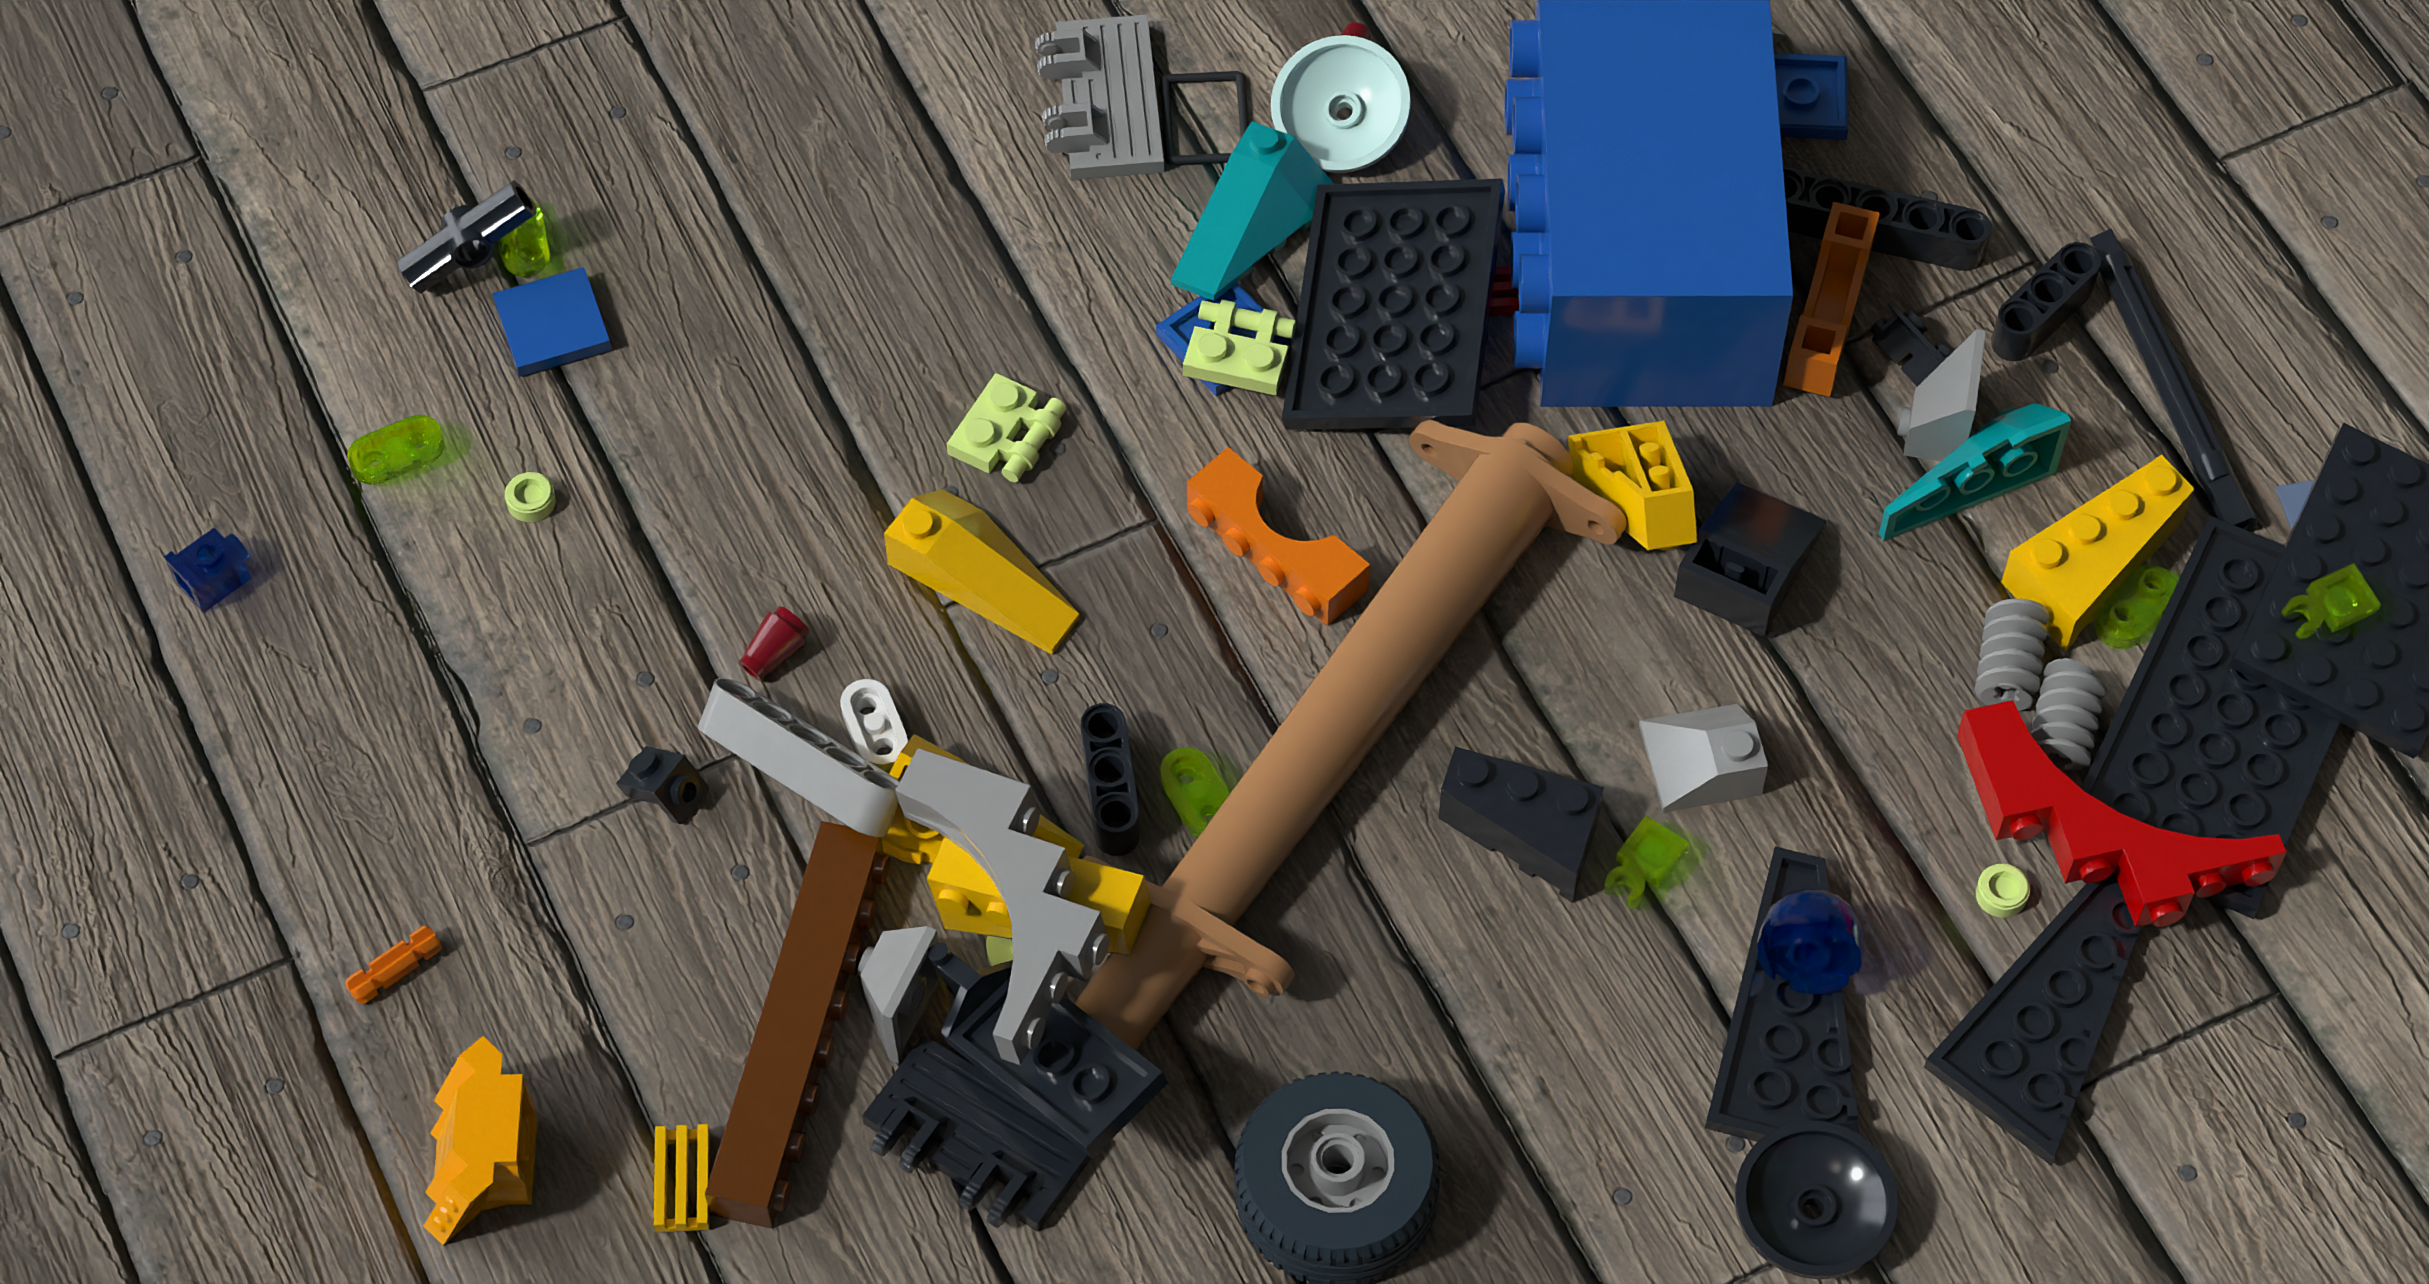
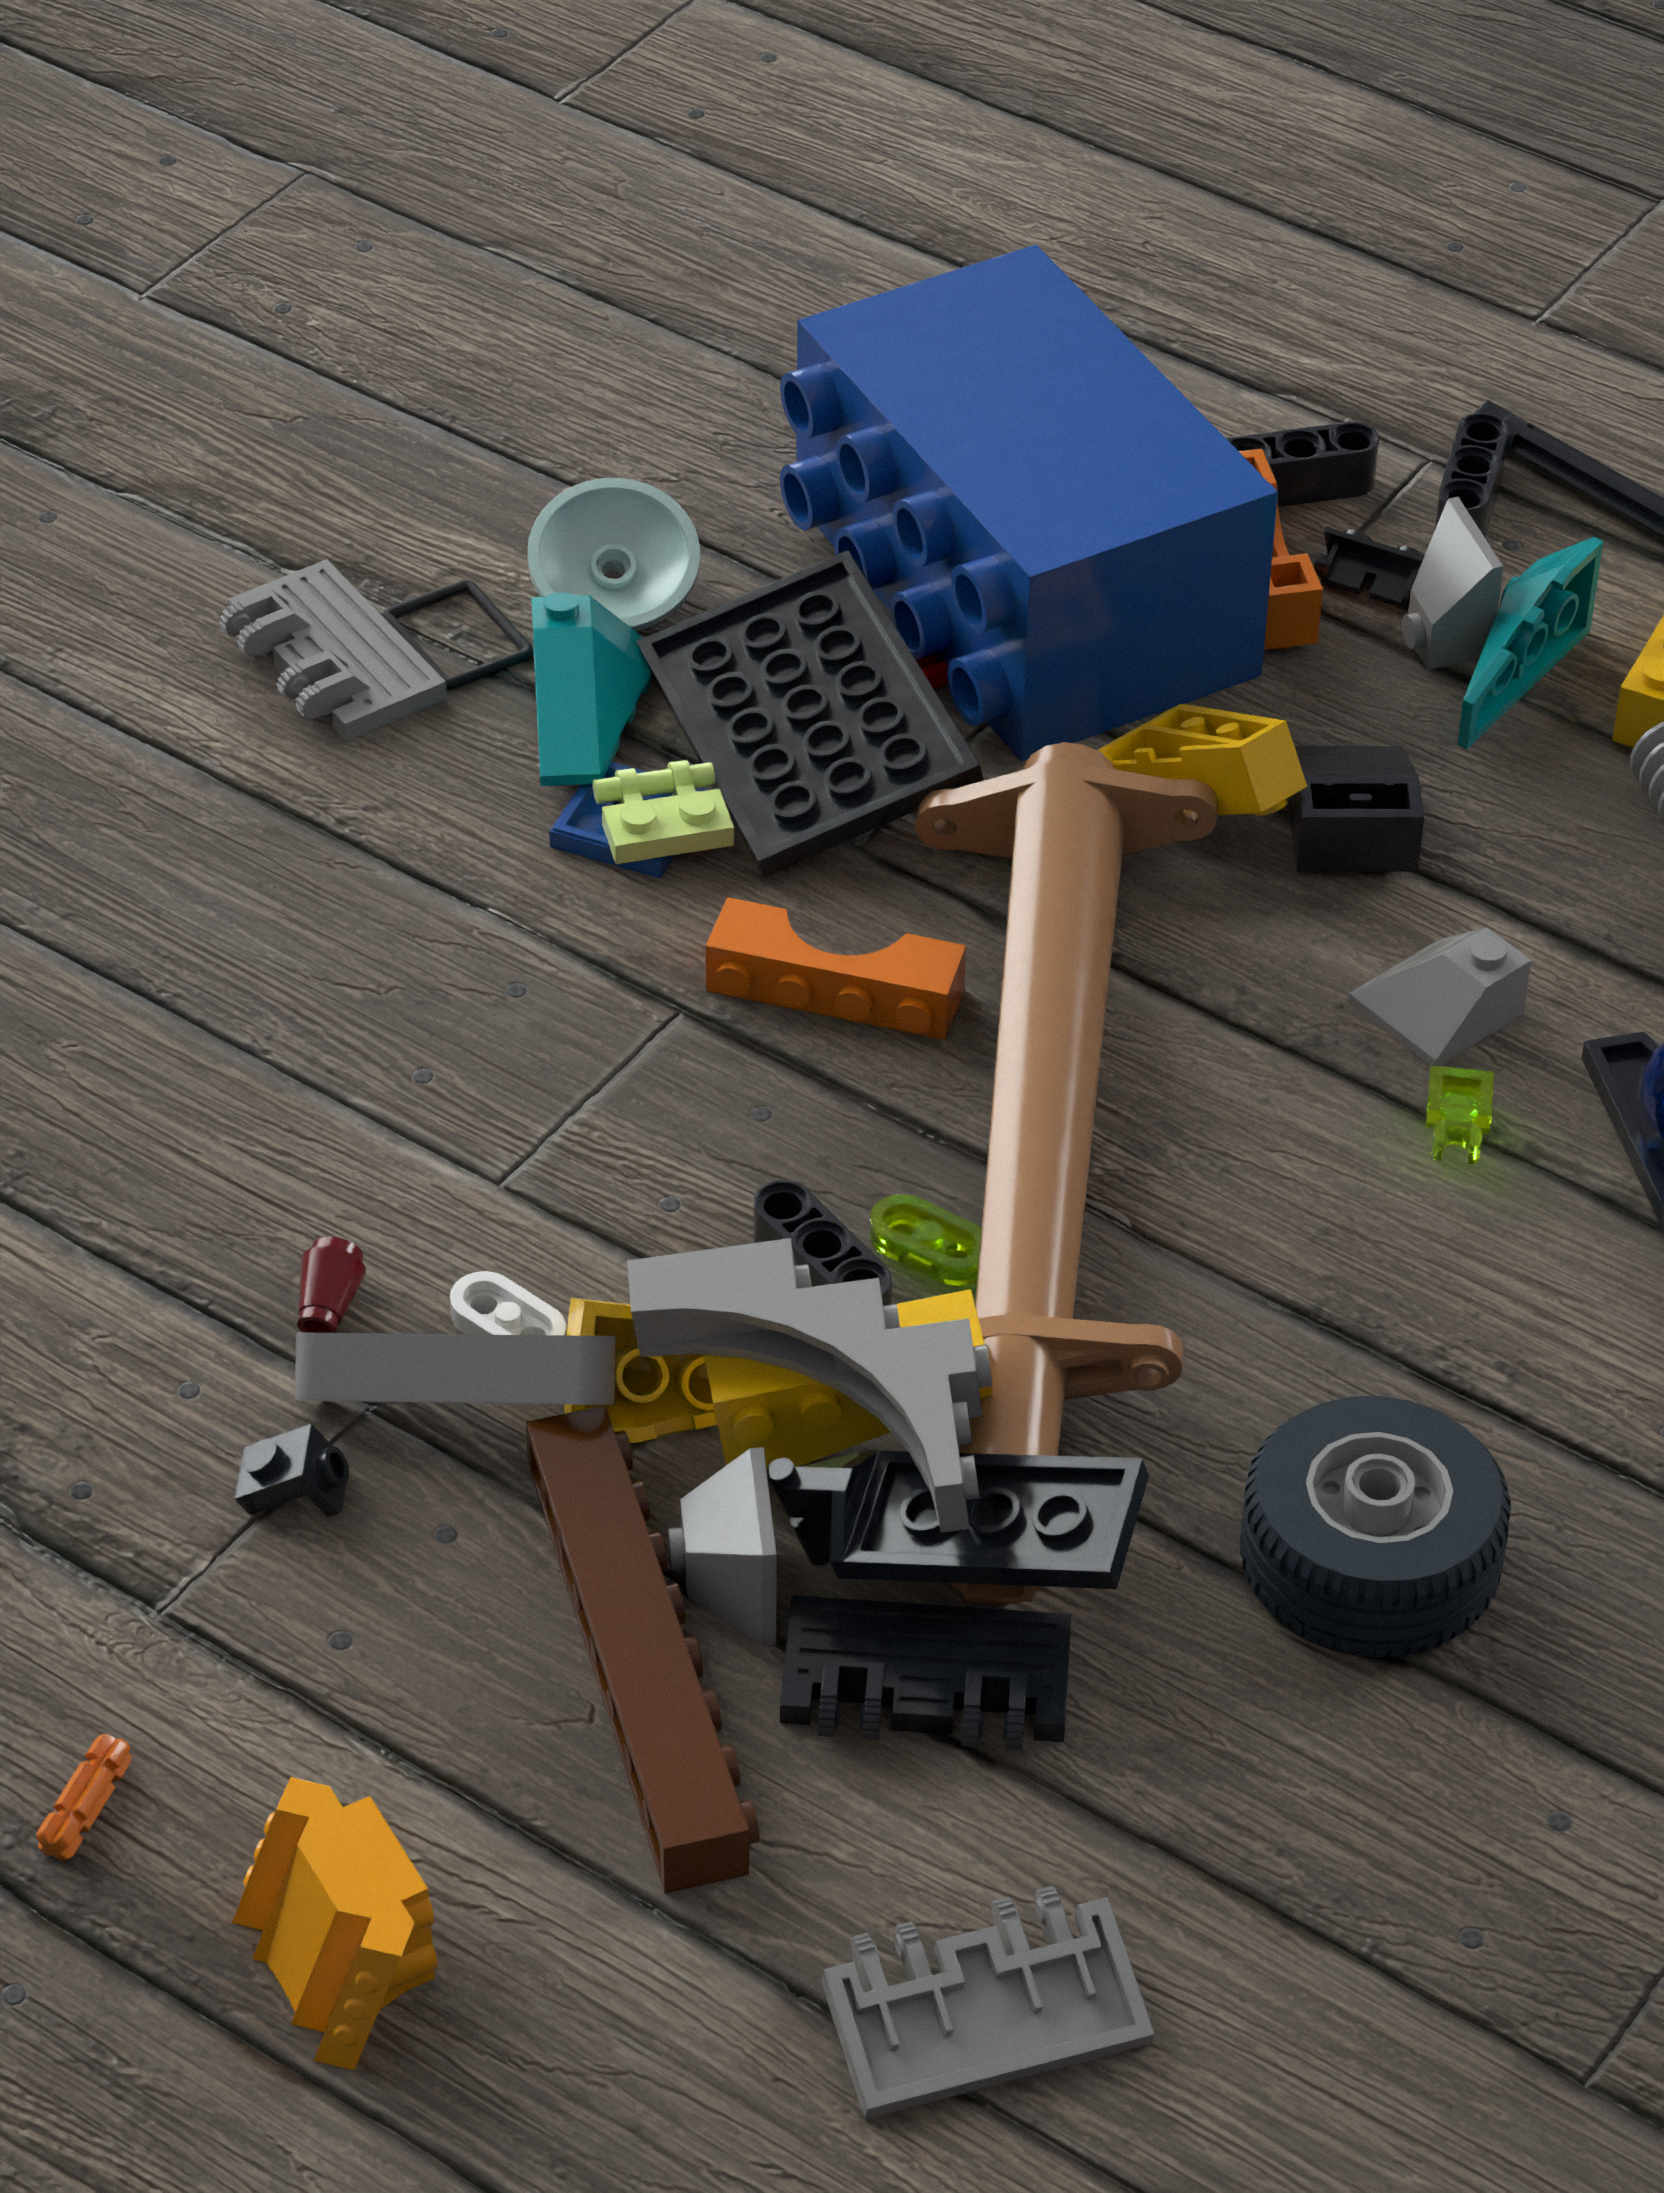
camera: 30 degrees left, 15 degrees down
(681, 1138) = (582, 1823): yellow tile -> none
(978, 566) = (504, 1129): yellow wedge -> none
(995, 420) = (428, 986): yellowish green plate -> none
(1523, 813) = (1302, 1112): black wedge -> none

